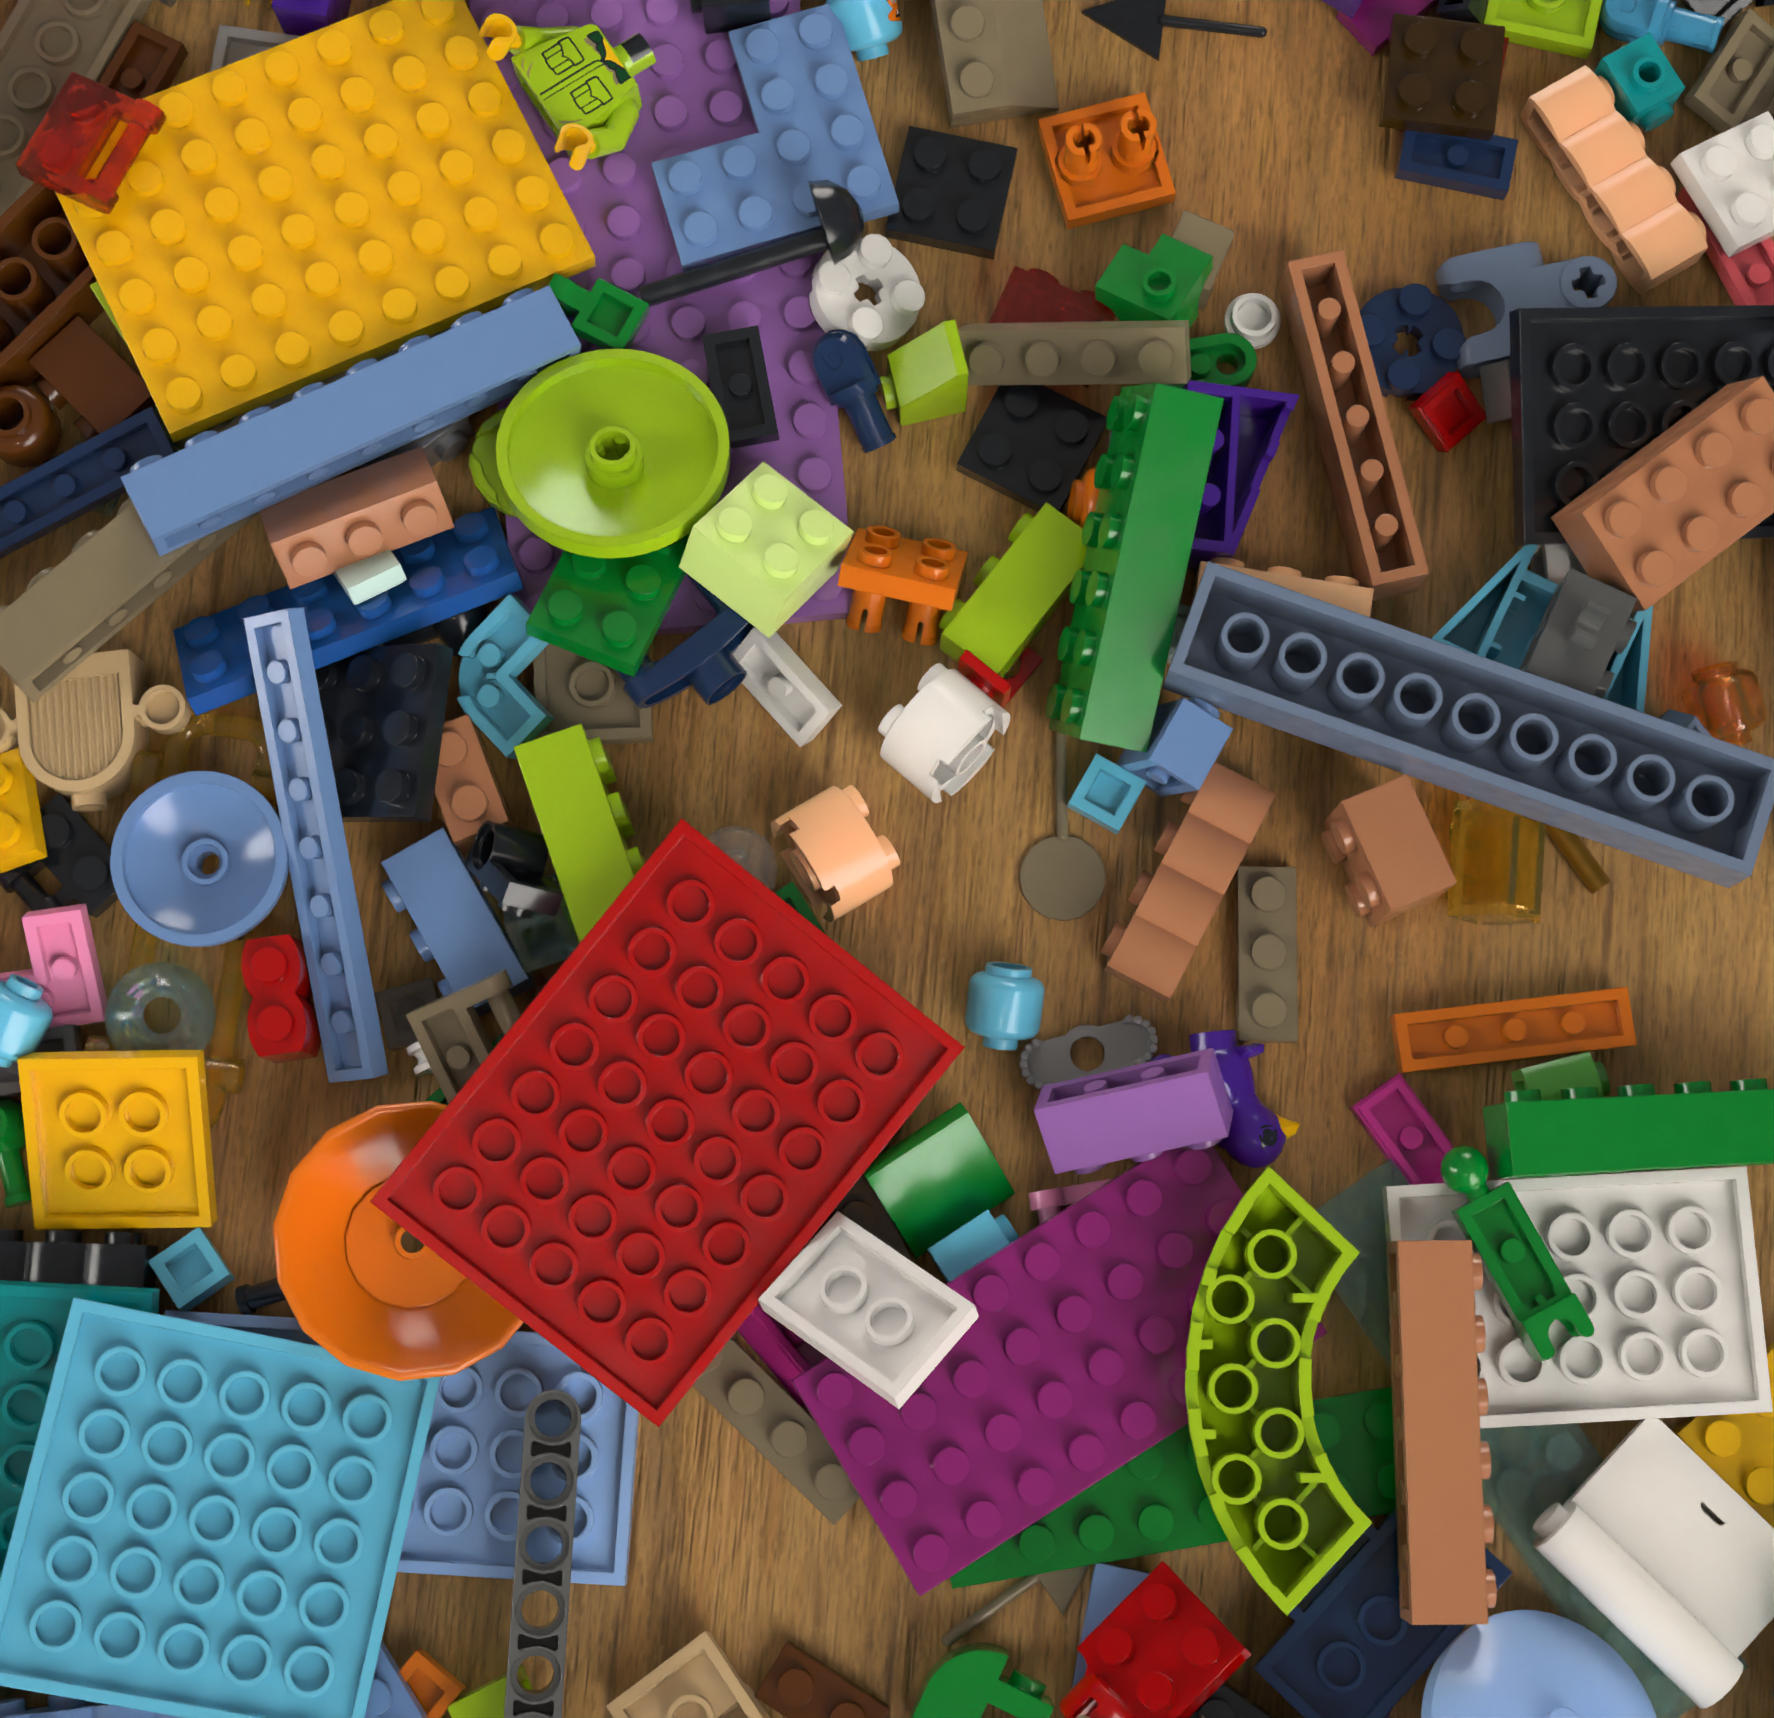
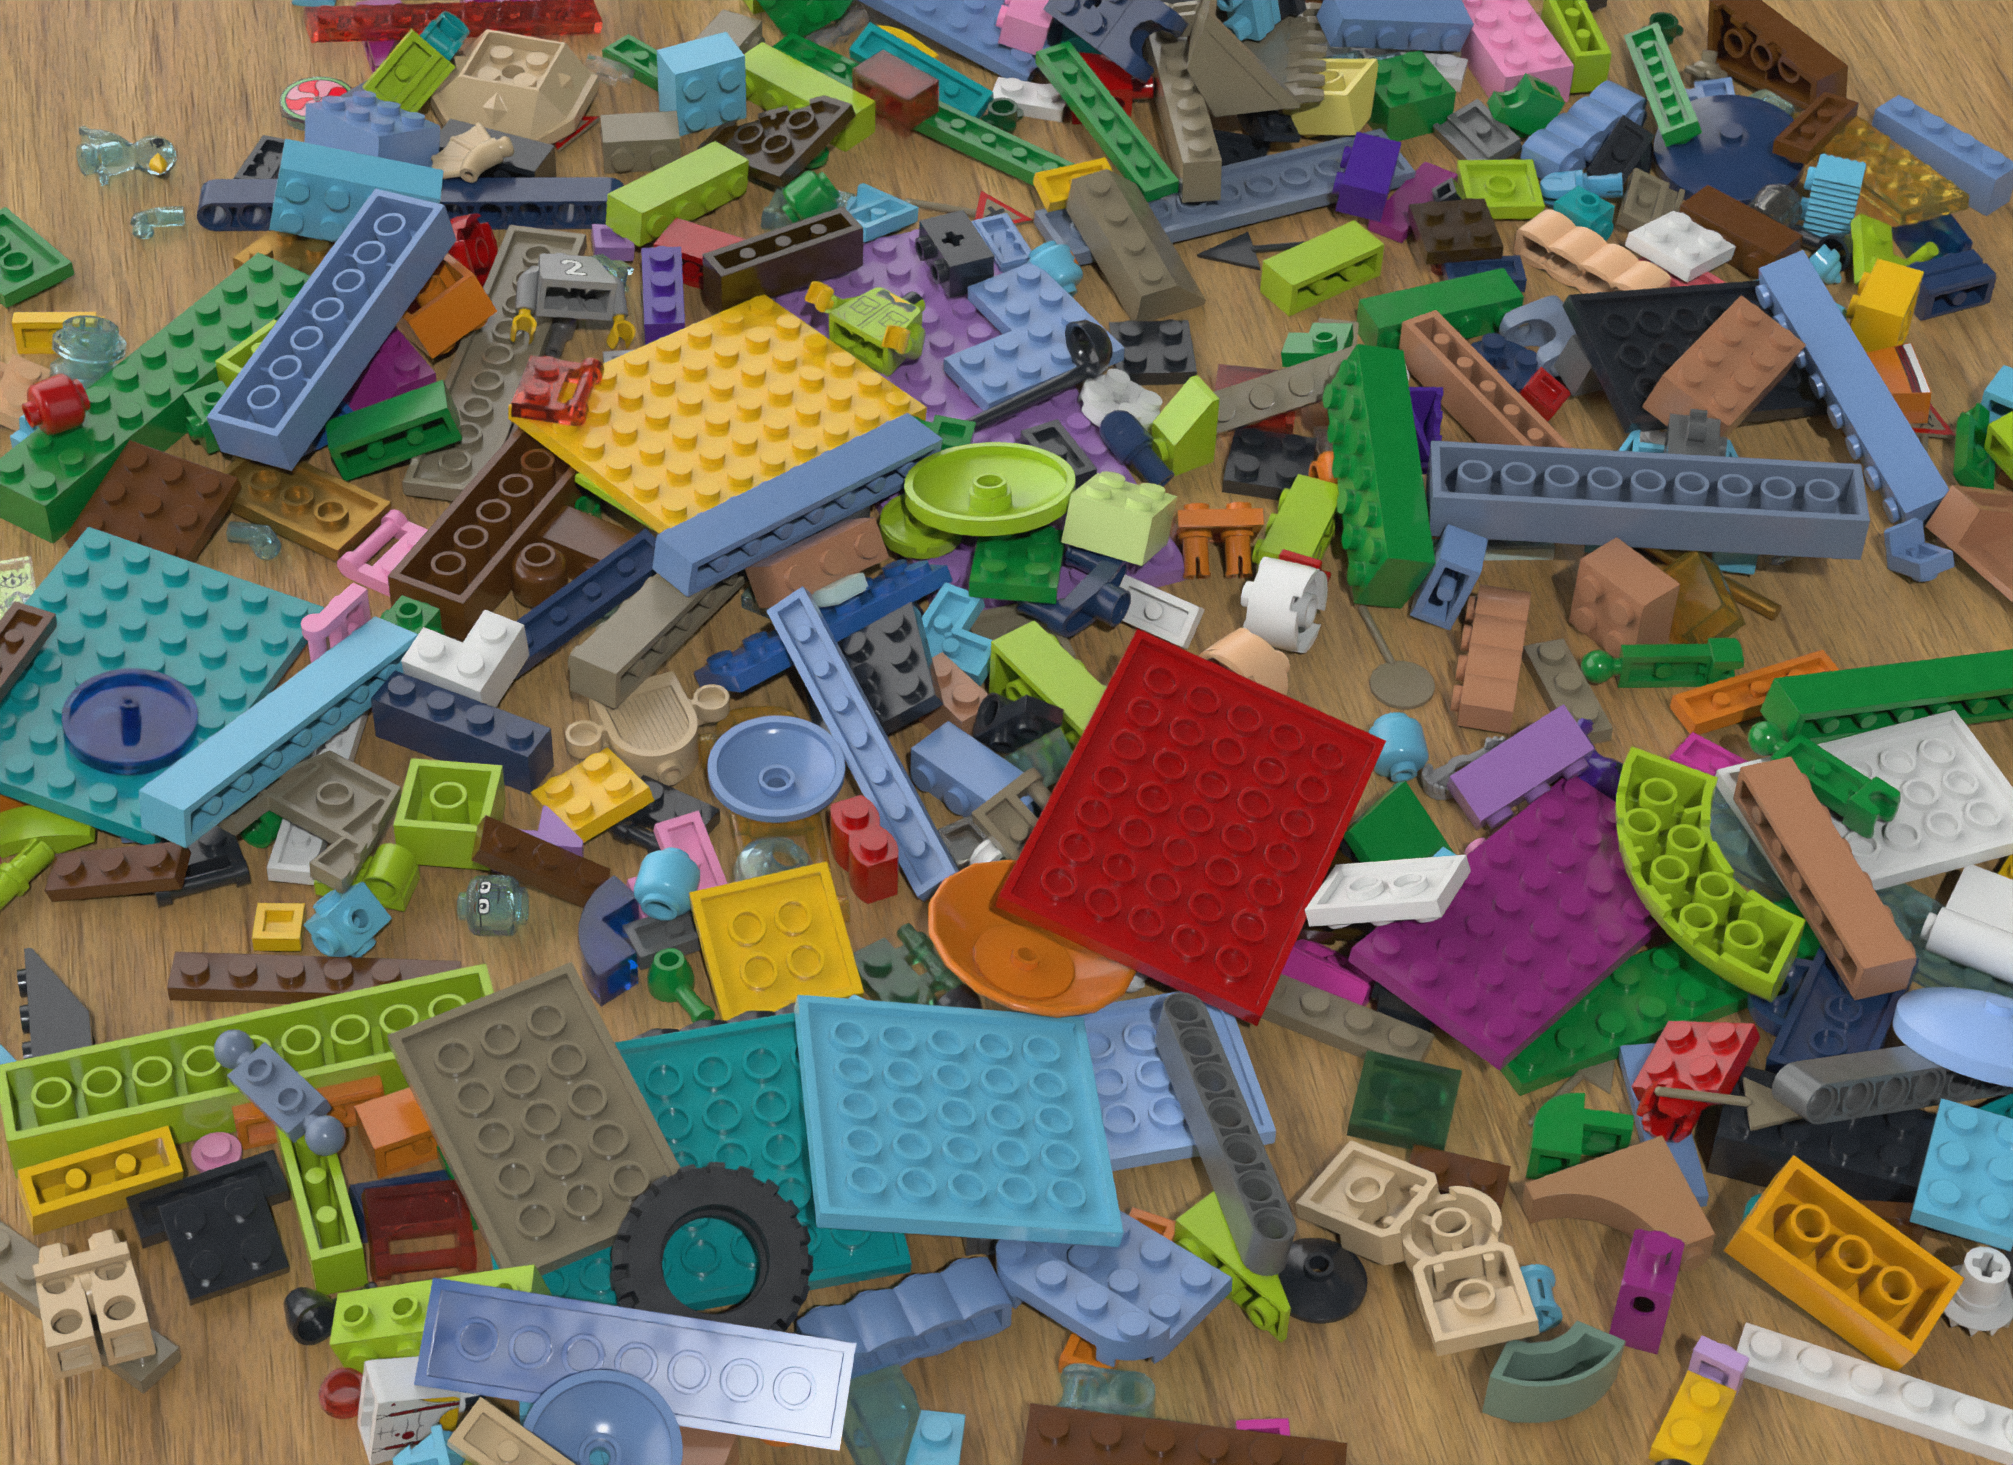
camera: 20 degrees left, 35 degrees down
(252, 1192) = (888, 971): none -> clear green plate
(799, 1577) = (1404, 1102): none -> clear green plate
(1106, 160) = (1252, 311): orange plate -> none
(1106, 794) = (1412, 626): medium azure plate -> none
(1236, 92) = (1321, 268): none -> lime brick
(1369, 220) = (1468, 303): none -> green brick
(1477, 972) = (1666, 664): none -> green plate

